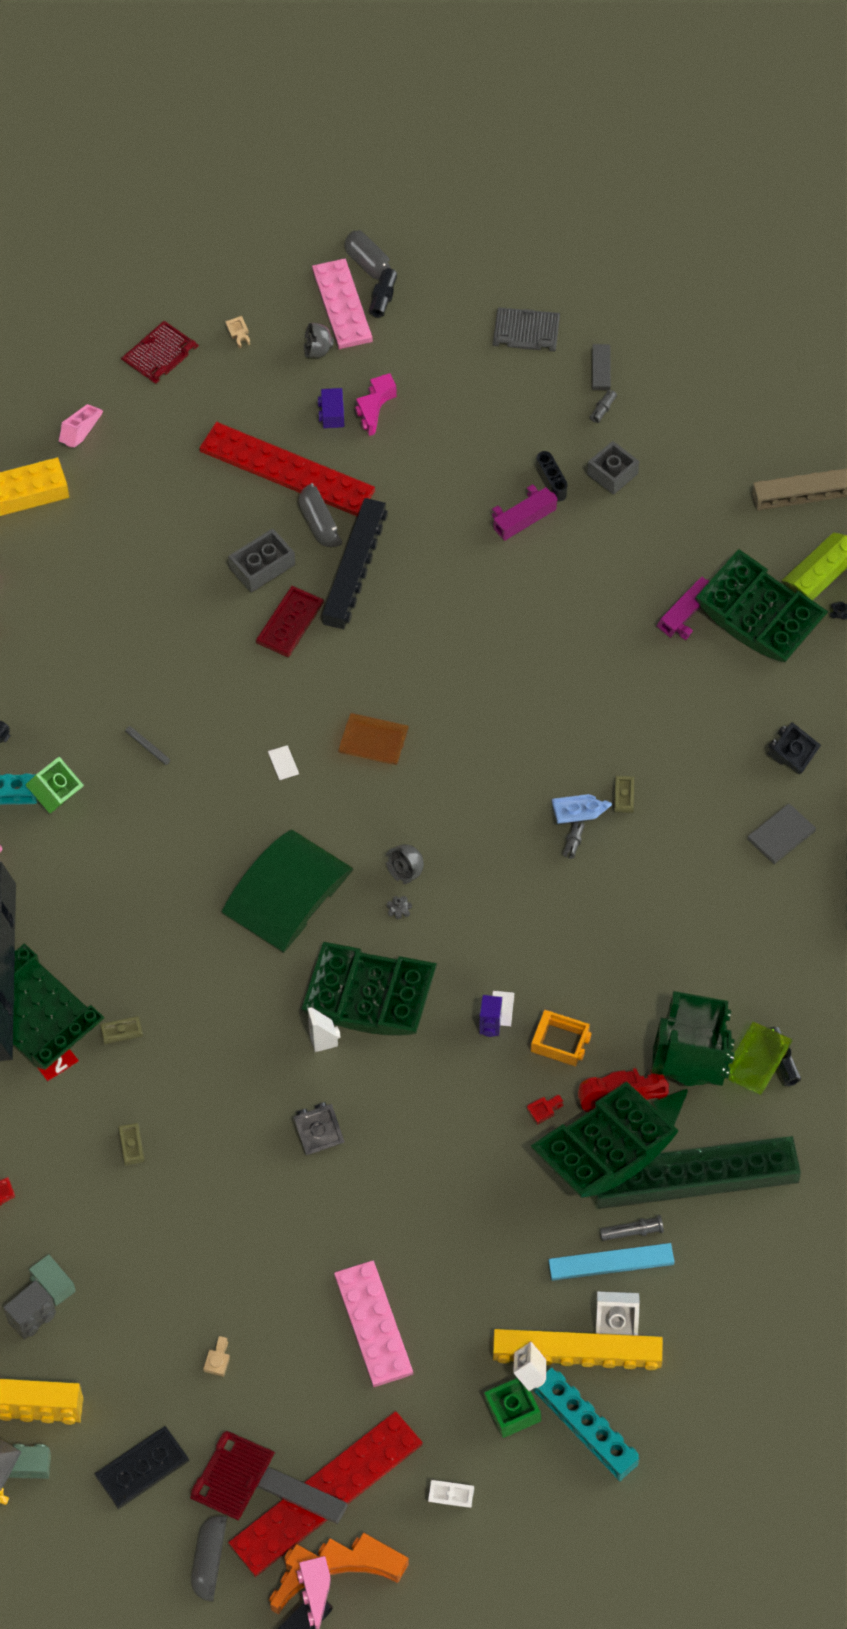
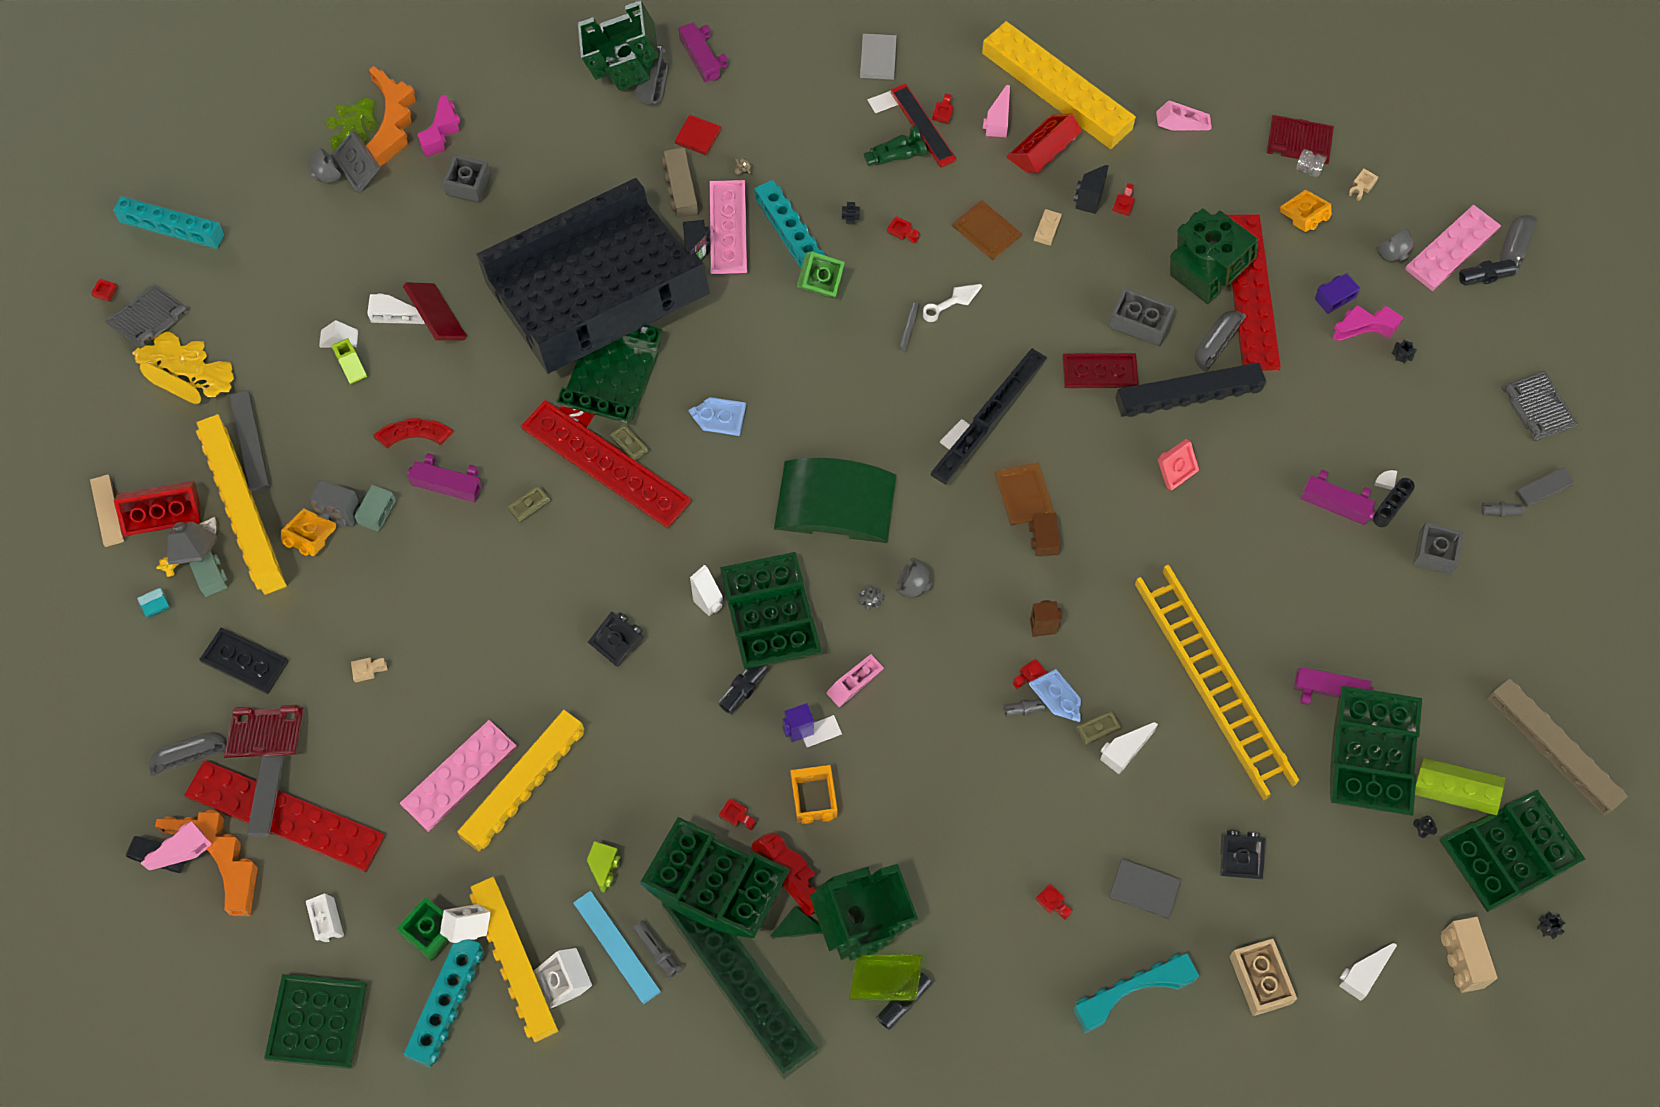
camera: 60 degrees right, 5 degrees up
(29, 542) = (1045, 142): none -> red slope
(29, 1526) = (153, 602): none -> teal piece
(41, 1351) = (307, 532): none -> light orange plate
(43, 701) = (902, 228): none -> red plate
(60, 1206) = (445, 481): none -> magenta brick
(88, 635) = (987, 230): none -> clear orange piece
(111, 530) = (1090, 189): none -> black slope
(118, 586) = (1047, 227): none -> tan plate
(130, 1059) = (606, 464): none -> red plate
(133, 515) = (1124, 203): none -> red plate
(140, 942) = (720, 415): none -> light blue tile
(144, 688) = (961, 295): none -> white piece
(194, 355) = (1310, 163): none -> clear wheel
(237, 385) = (1306, 210): none -> light orange plate
(245, 487) = (1206, 265): none -> dark green piece
(283, 727) = (988, 417): none -> black slope
(411, 1270) = (520, 781): none -> yellow brick
(418, 391) = (1404, 351): none -> black gear
(421, 609) = (1178, 464): none -> coral tile
(425, 741) = (1045, 534): none -> reddish brown brick
(428, 1050) = (742, 688): none -> black piece
(474, 956) = (854, 680): none -> bright pink slope
(505, 780) = (1045, 618): none -> reddish brown brick
(527, 470) = (1386, 479): none -> white tile
(530, 1238) = (601, 862): none -> lime slope
(545, 819) = (1029, 673): none -> red plate
(545, 1542) = (316, 1021): none -> dark green plate
(640, 675) = (1233, 681): none -> yellow ladder
(656, 787) = (1125, 747): none -> white slope
(754, 906) = (1052, 900): none -> red plate

